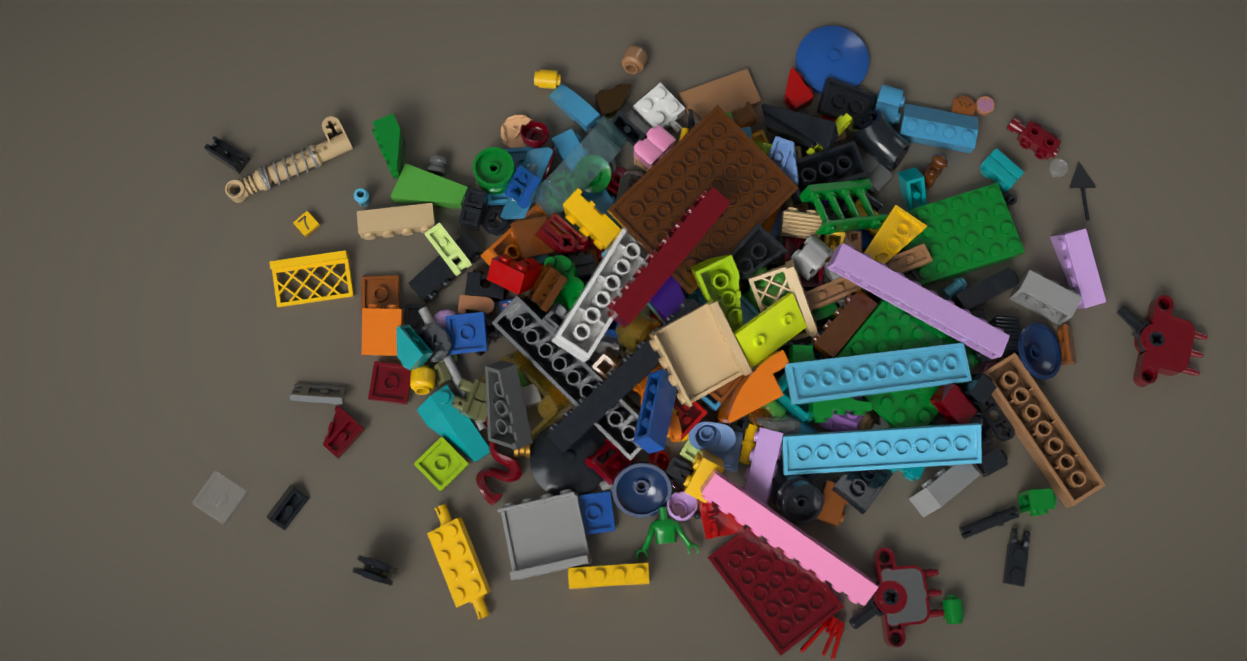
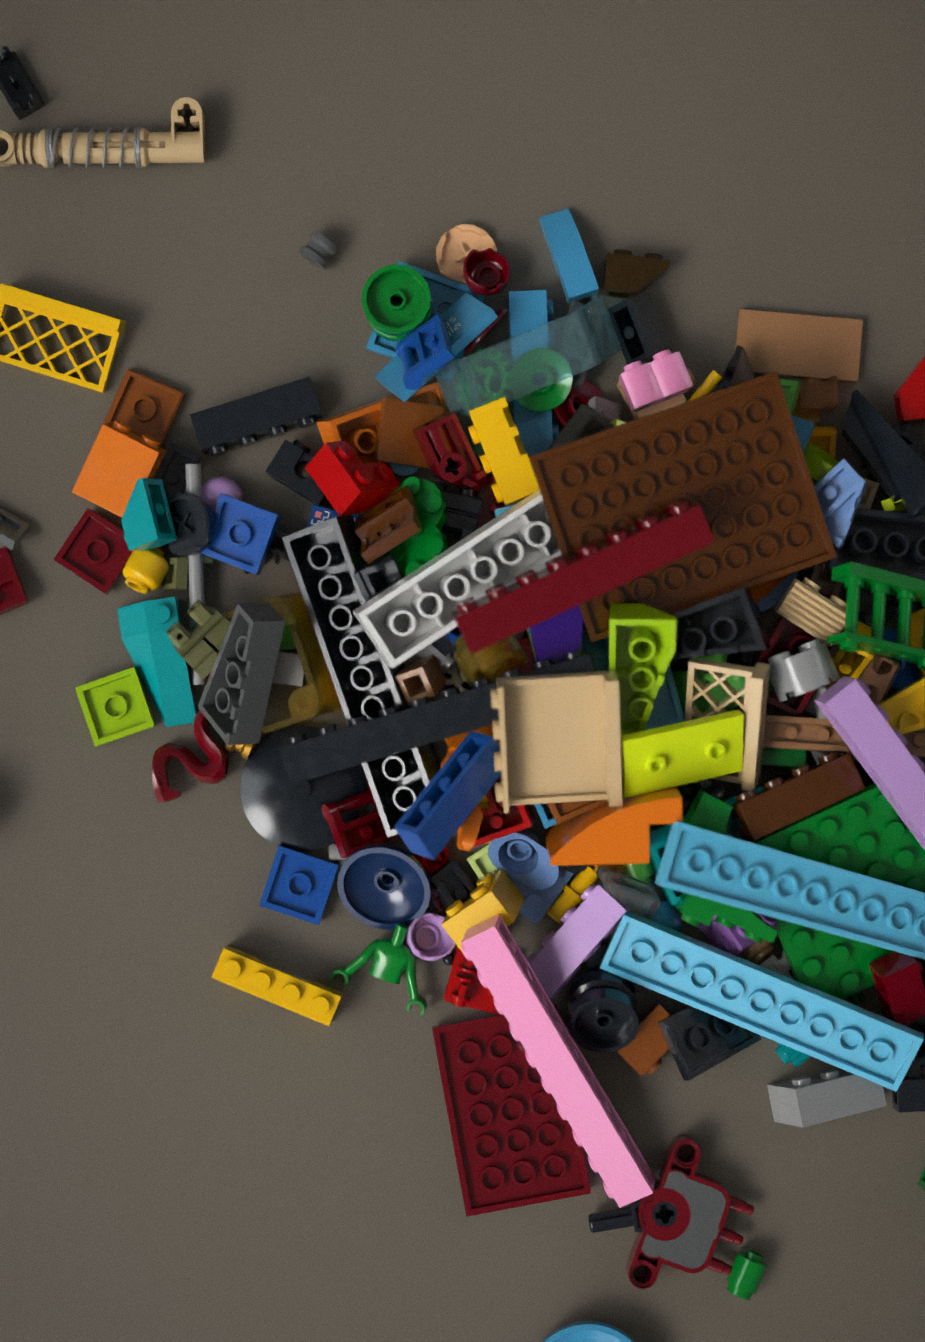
camera: 25 degrees right, 10 degrees up
(306, 224) = (83, 248): yellow tile -> none
(362, 197) = (183, 239): medium azure pin -> none
(390, 143) = (266, 185): green slope -> none
(396, 220) = (218, 308): tan brick -> none
(422, 187) = (284, 279): bright green slope -> none
(447, 248) = (270, 391): yellowish green plate -> none
(459, 562) = (75, 861): yellow plate -> none
(473, 209) = (344, 343): black hips -> none
(476, 304) = (283, 498): nougat leg -> none
(489, 226) = (352, 384): black gear -> none
(545, 535) = (215, 884): light grey panel -> none
(547, 79) = (548, 191): yellow brick -> none
(634, 59) = (696, 223): medium nougat head -> none
(660, 108) = (696, 322): white plate -> none
(834, 628) = (563, 1218): red plant -> none
(996, 519) = (865, 1176): black pin -> none
(1016, 559) = (876, 1247): black hinge -> none

